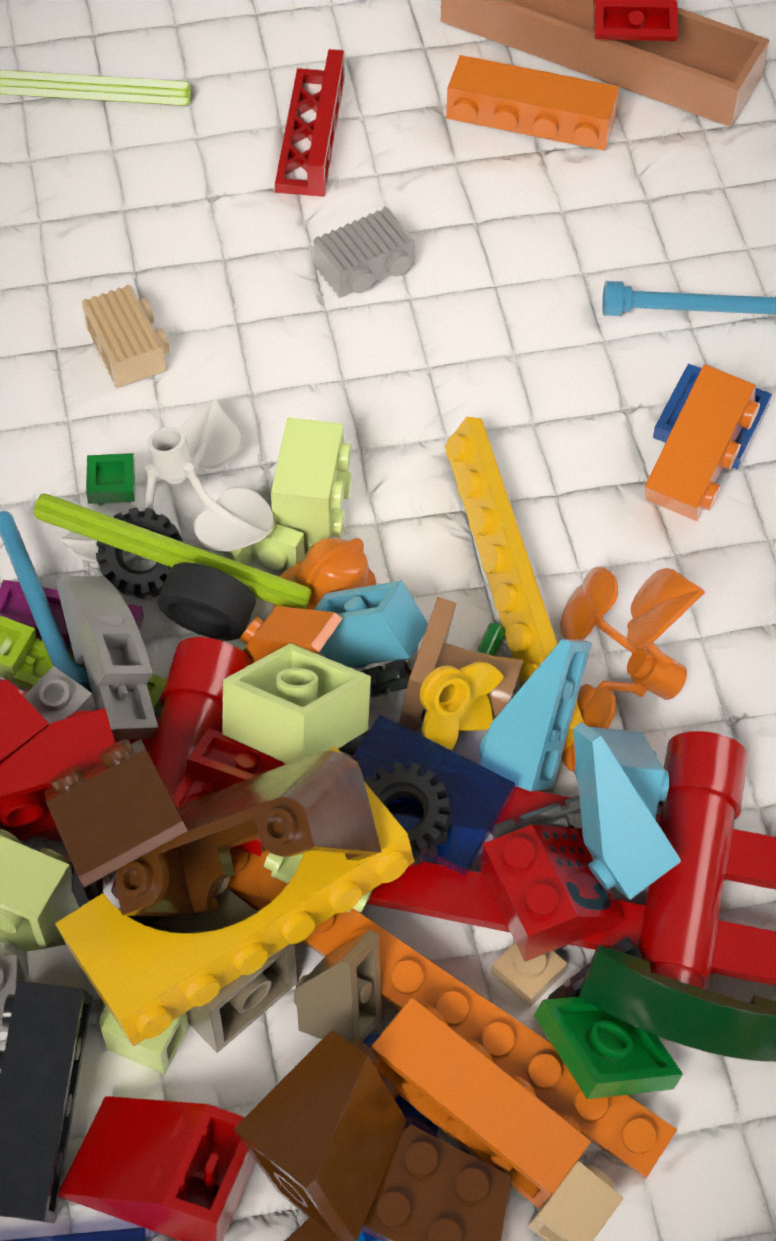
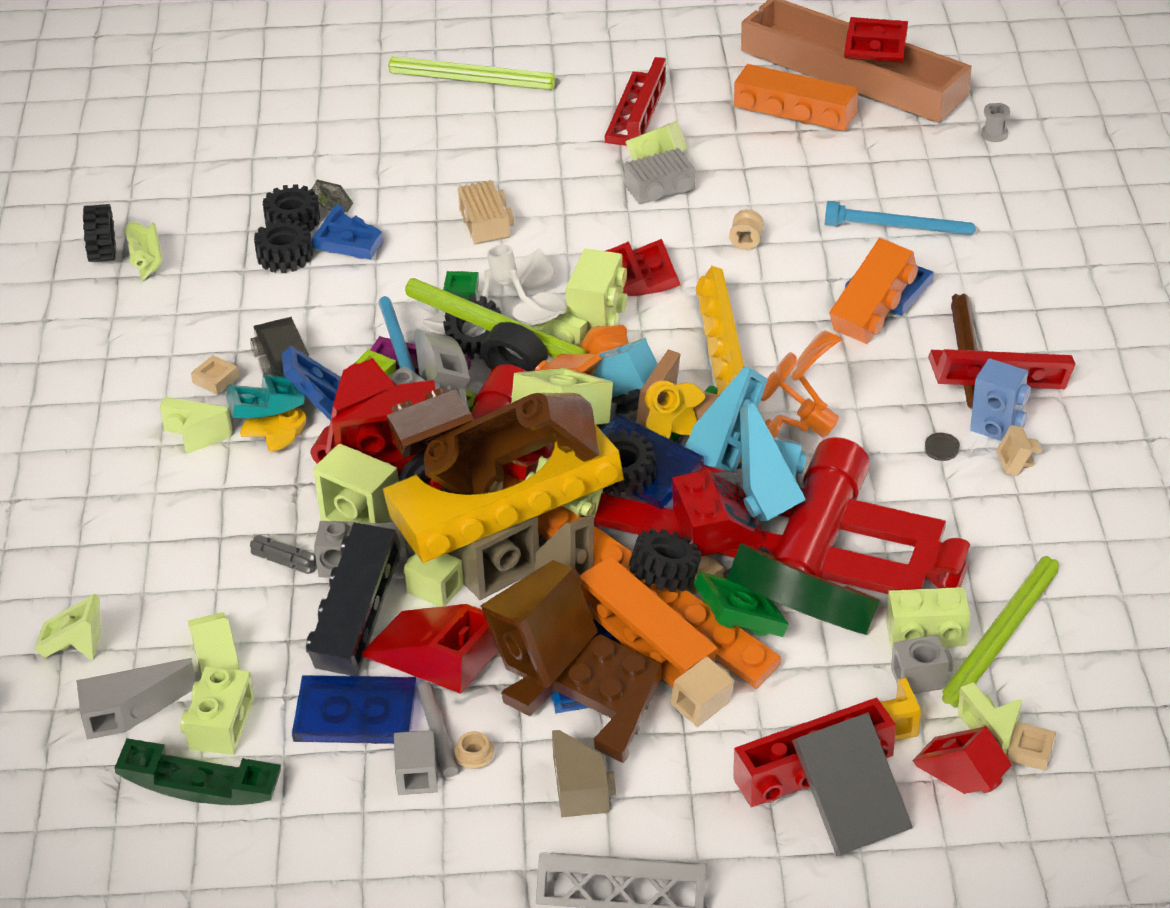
camera: 10 degrees right, 15 degrees down
(352, 196) = (657, 141): none -> yellowish green slope
(370, 413) = (647, 268): none -> red slope
(480, 1008) = (665, 560): none -> black tyre
(500, 338) = (746, 221): none -> tan wheel

